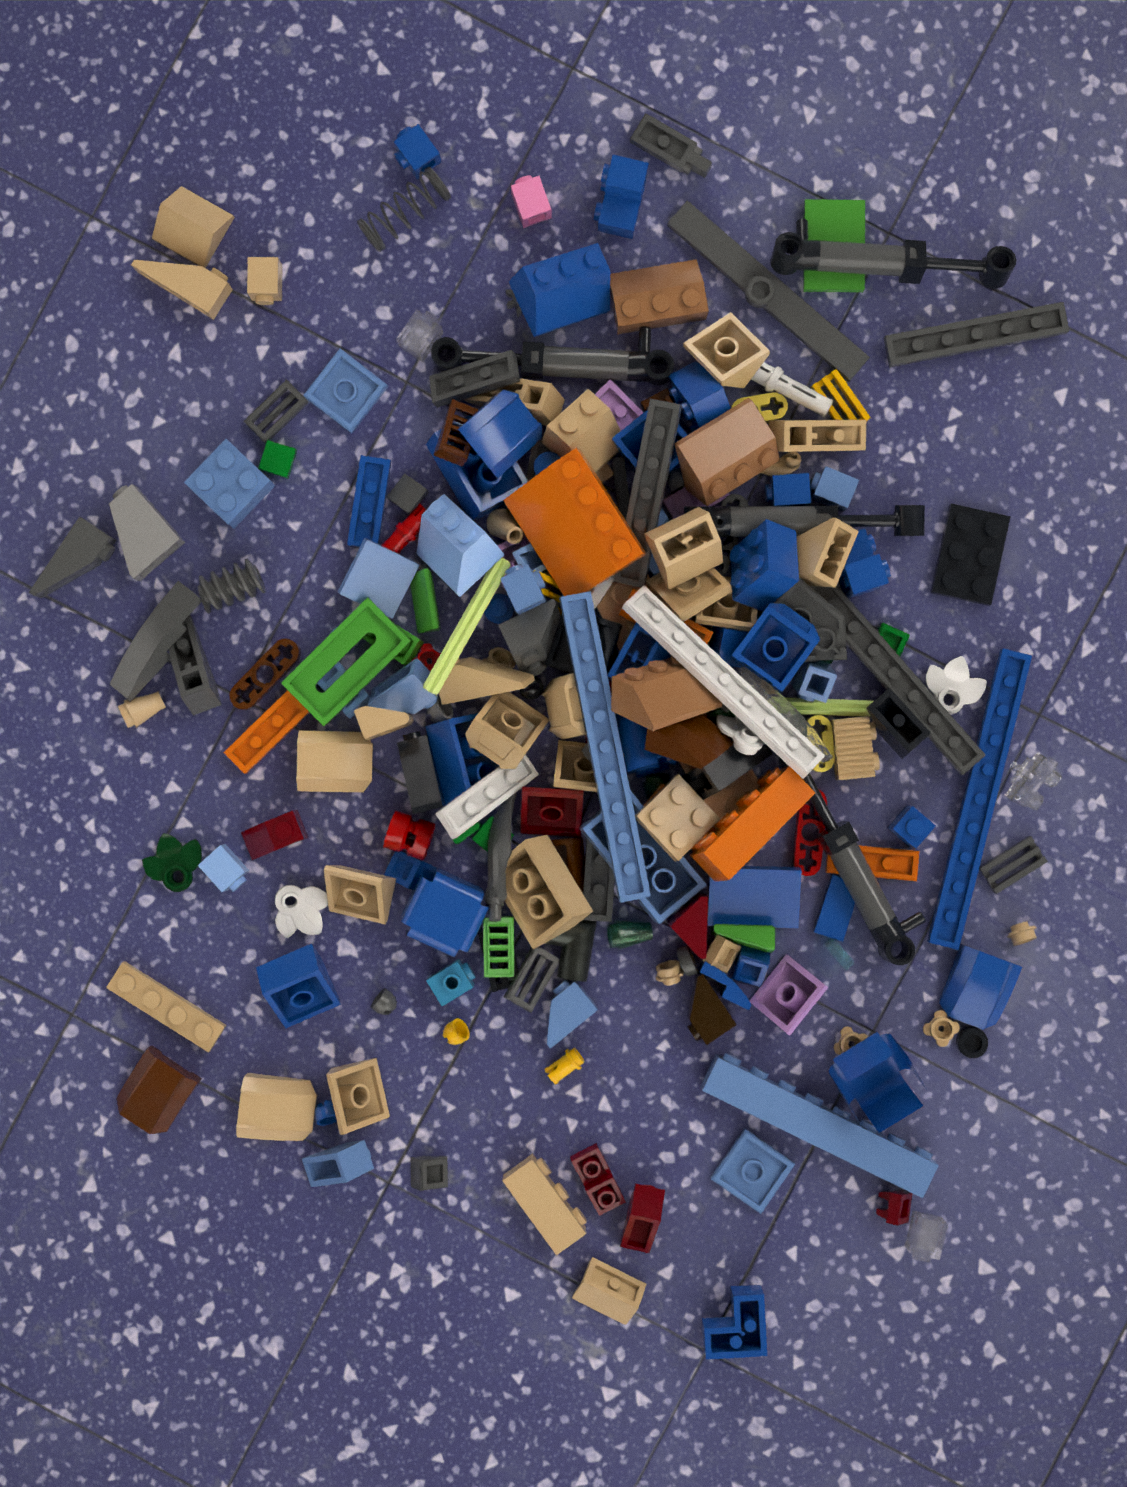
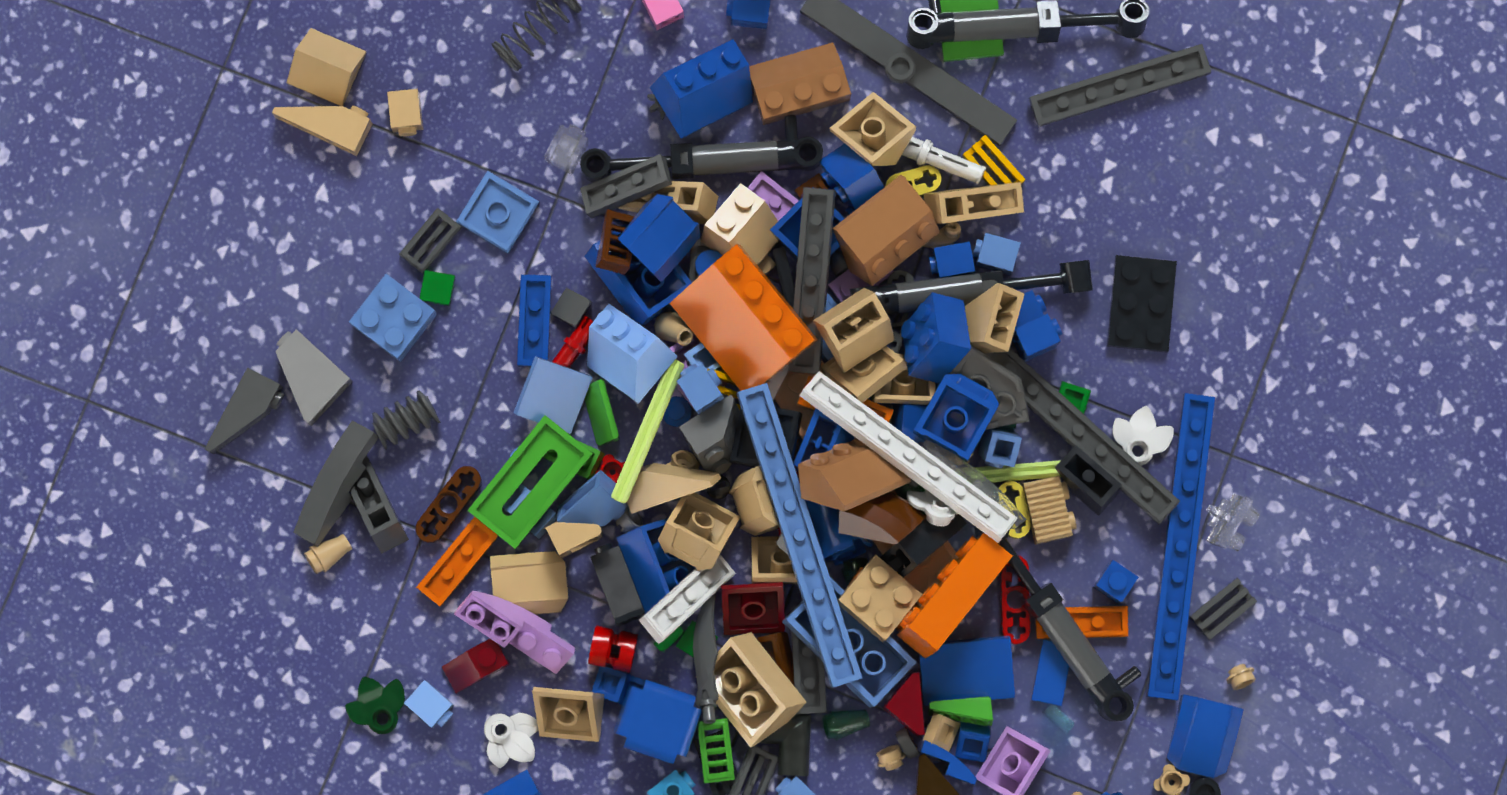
camera: 15 degrees left, 5 degrees down
(313, 800) = (517, 626): none -> lavender slope

